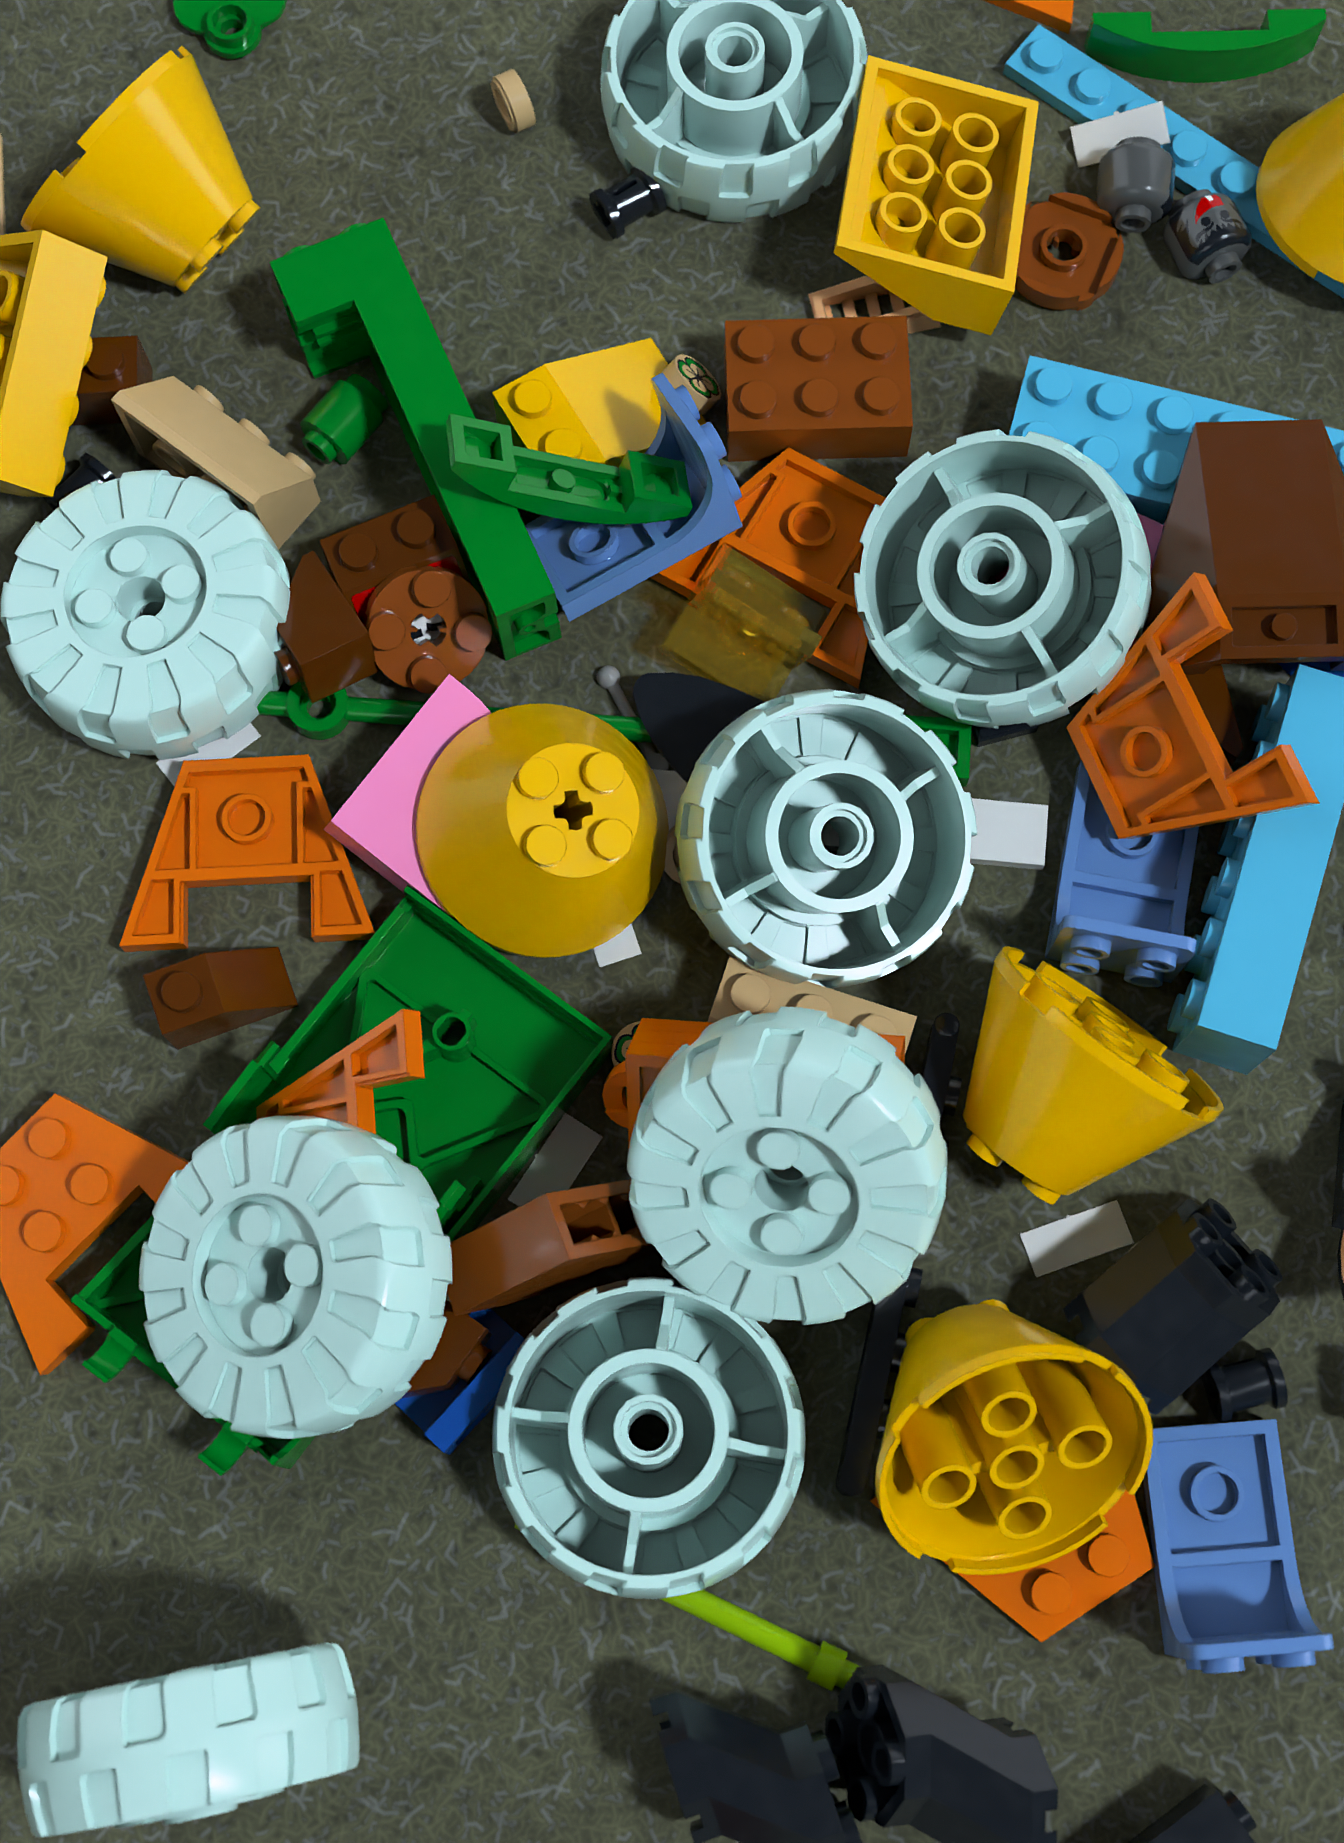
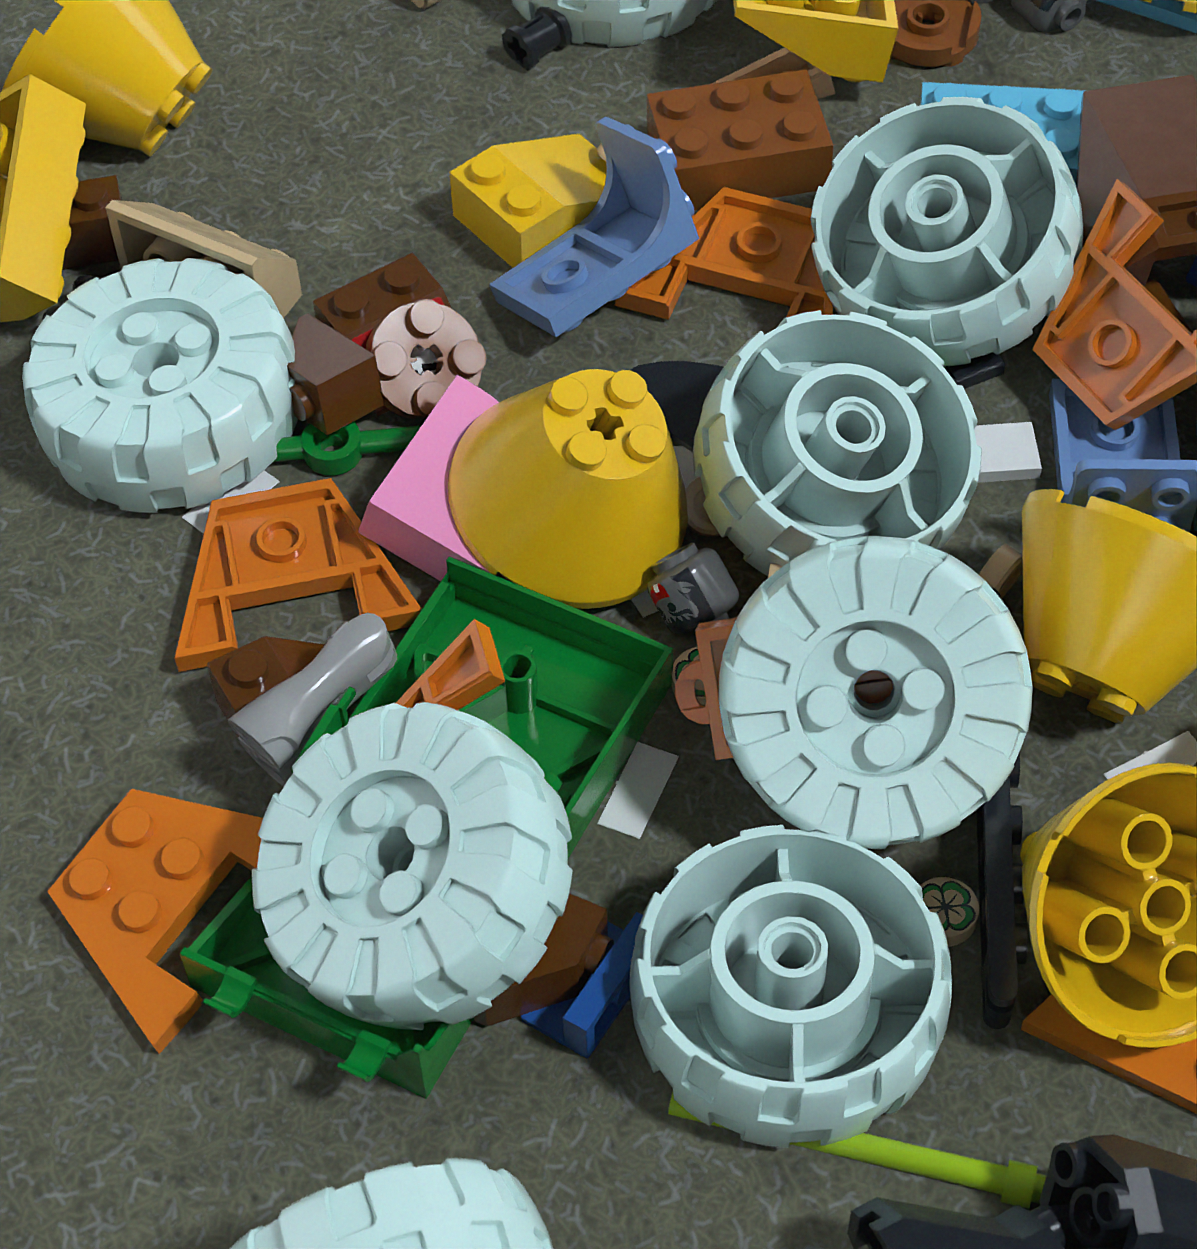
camera: 10 degrees left, 20 degrees down
(210, 1058) = (283, 718): none -> light grey piece
(343, 420) = (314, 224): green brick -> none
(358, 303) = (326, 128): green brick -> none
(545, 1247) = (655, 814): dark orange brick -> none
(565, 487) = (597, 221): green slope -> none
(649, 960) = (691, 588): none -> dark grey head
(743, 627) = (711, 315): clear yellow bracket -> none
(823, 1363) = (955, 906): none -> tile
(966, 992) = (1003, 569): none -> tan tile

